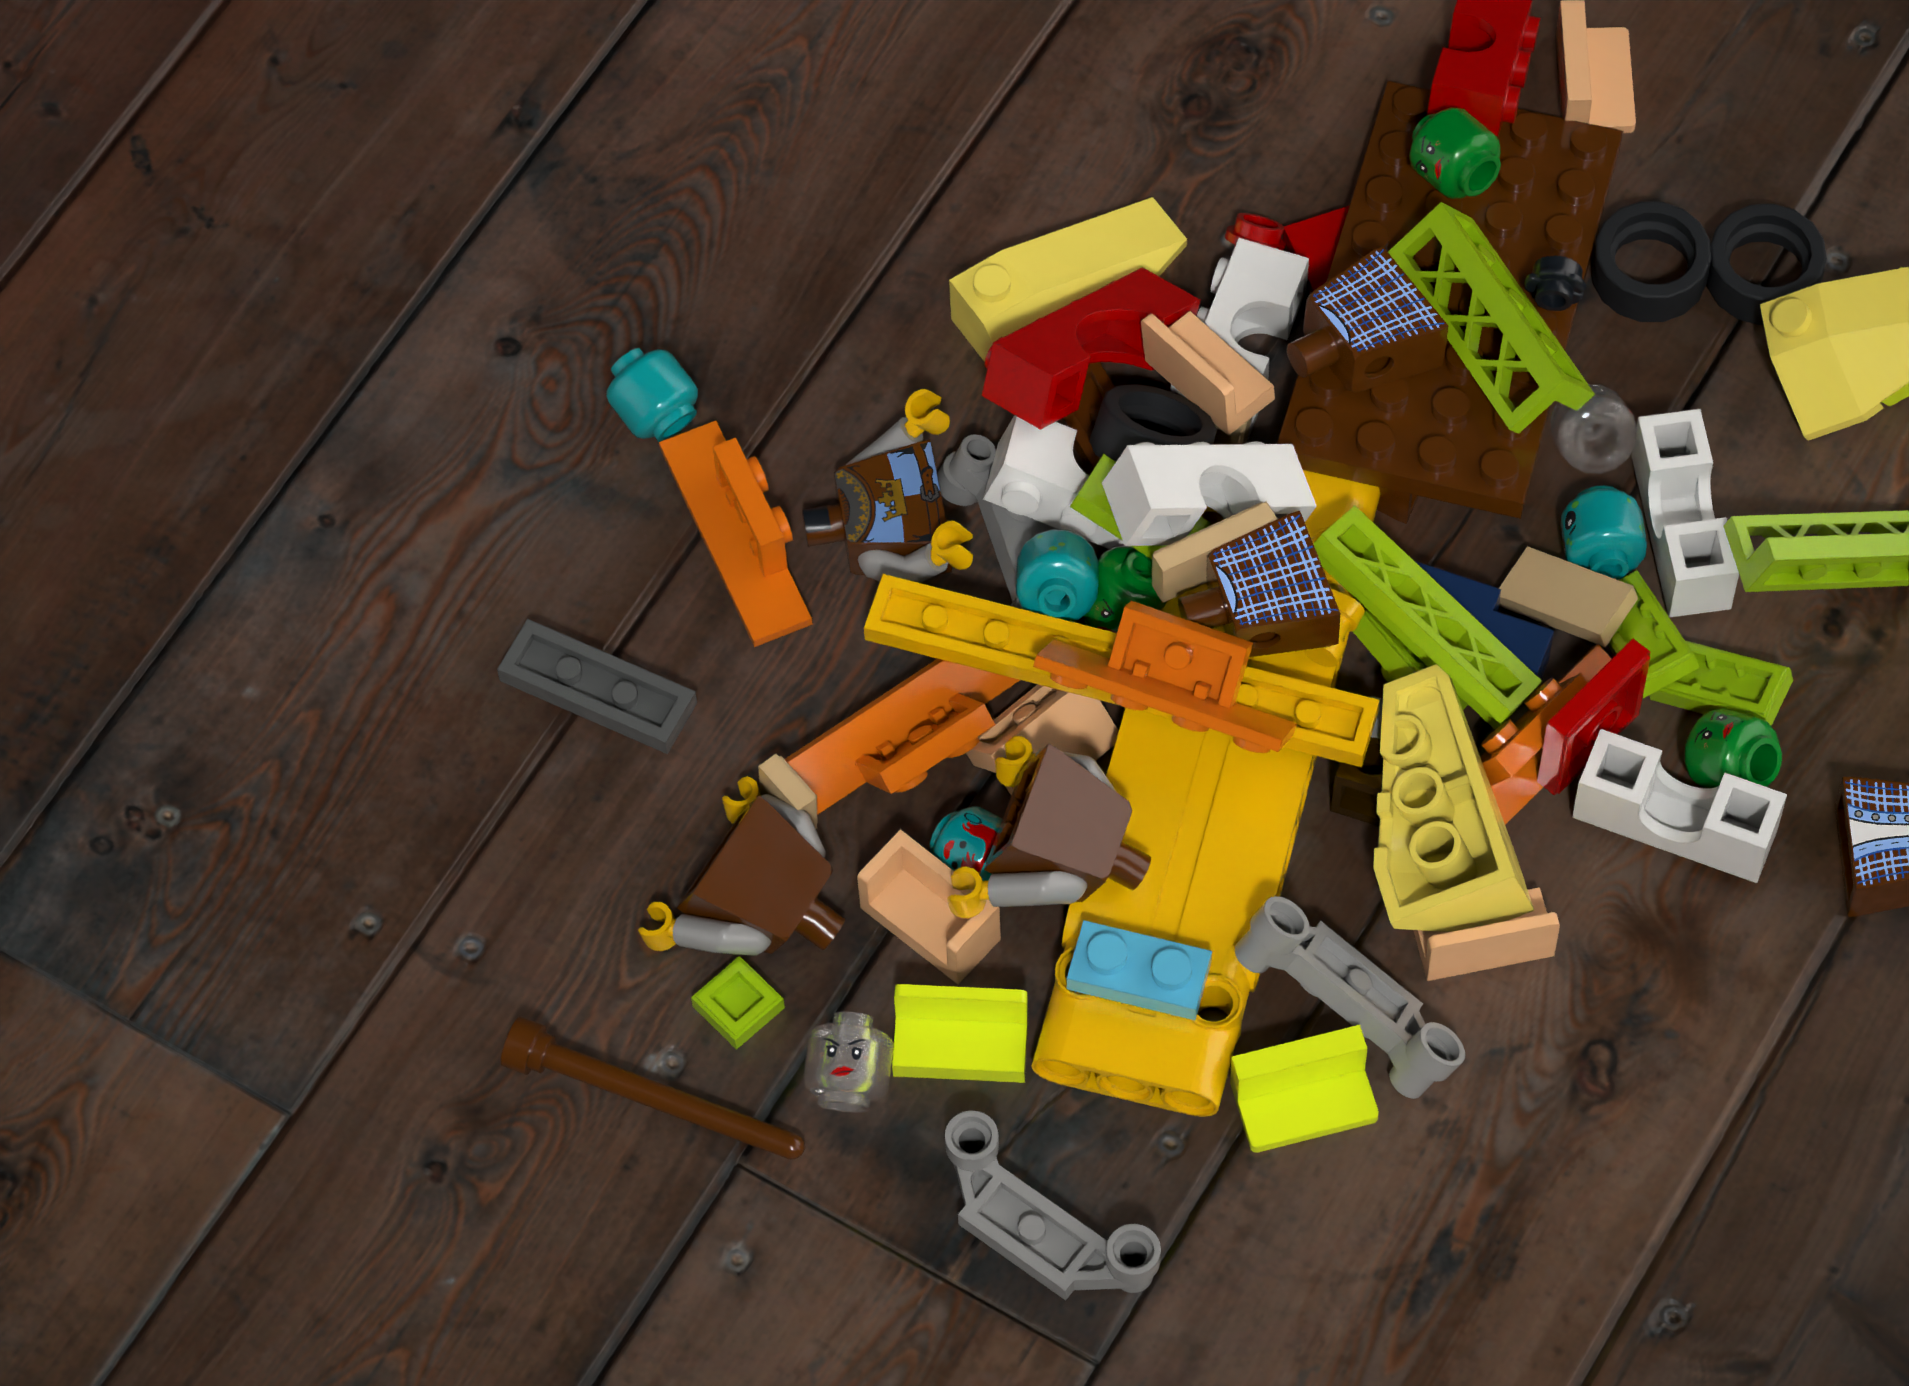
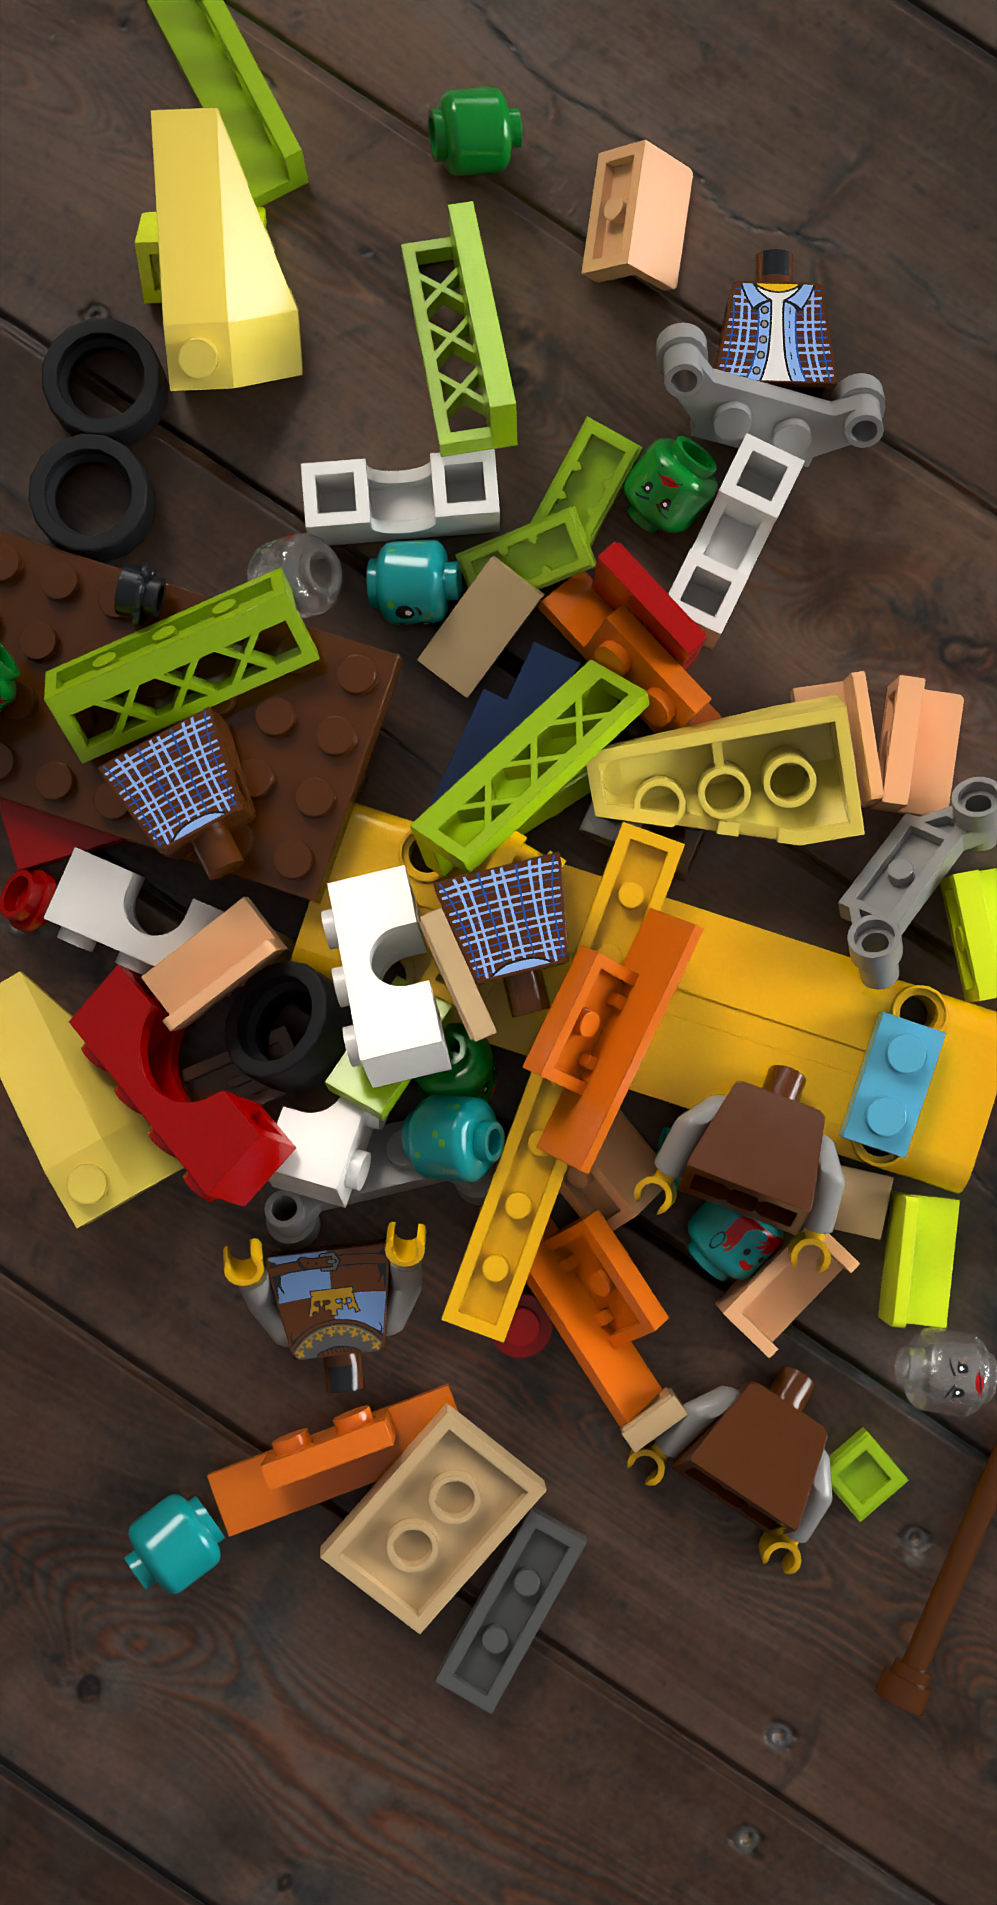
camera: 90 degrees left, 25 degrees up
(685, 606) = (432, 1518): none -> tan plate
(870, 676) = (528, 1330): none -> red plate
(1021, 969) = (863, 1202): none -> tan tile
(1494, 1005) = (918, 747): none -> light nougat panel
(1817, 828) = (731, 405): none -> light grey plate

